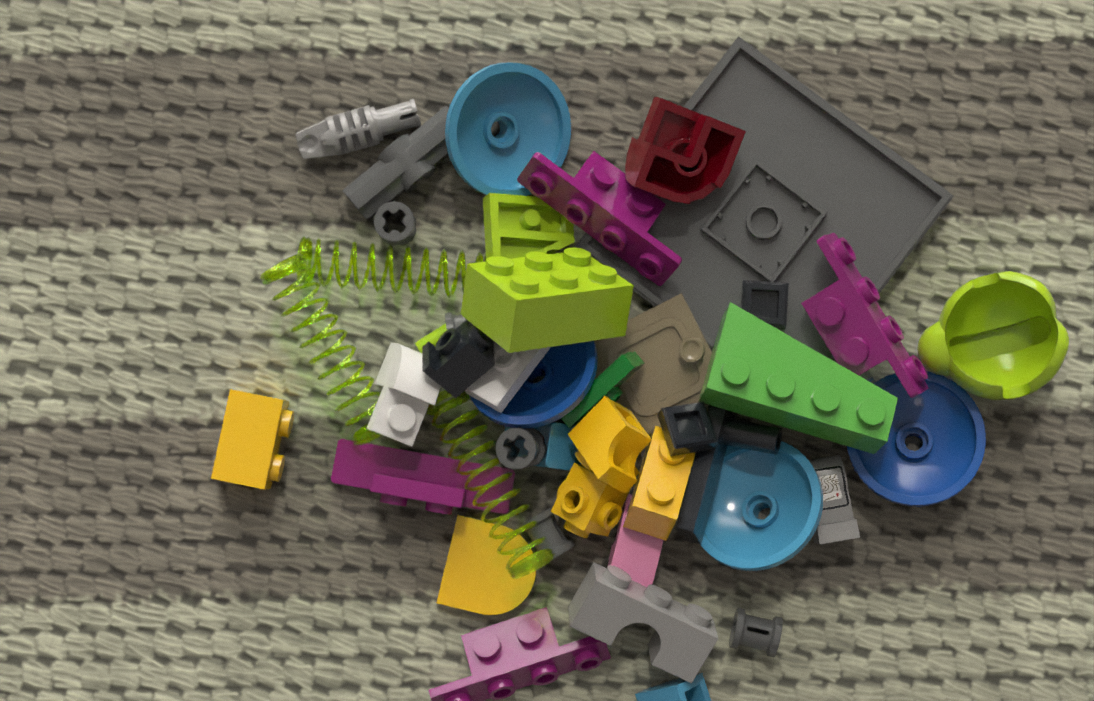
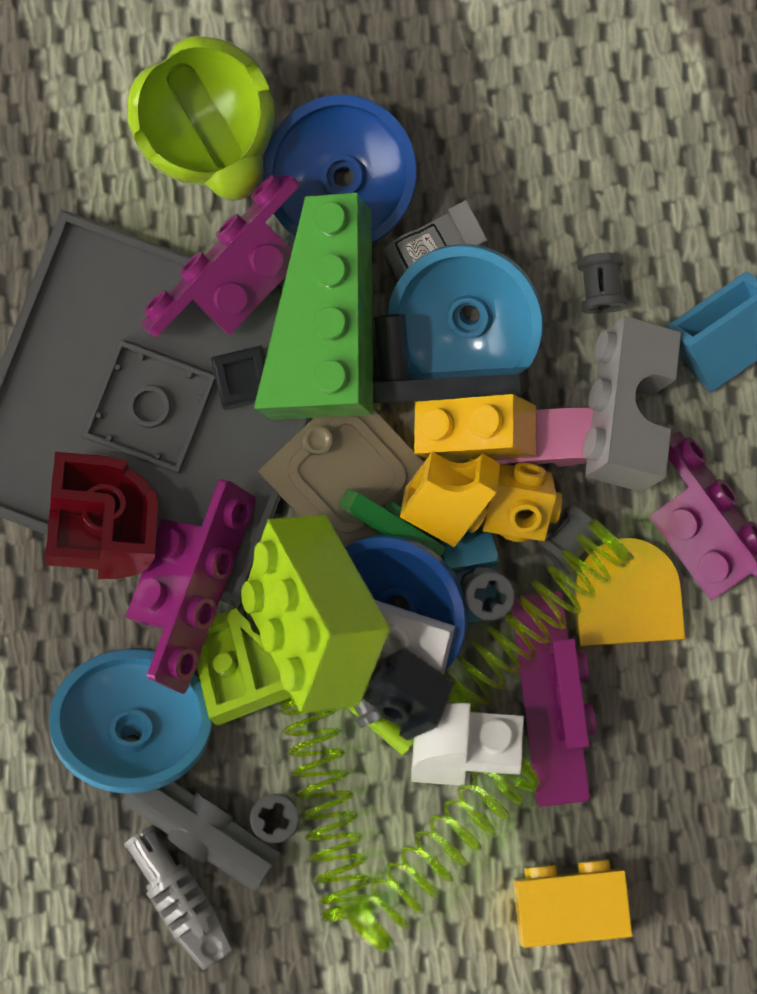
camera: 110 degrees left, 5 degrees down
(687, 428) = (407, 415): black tile -> none

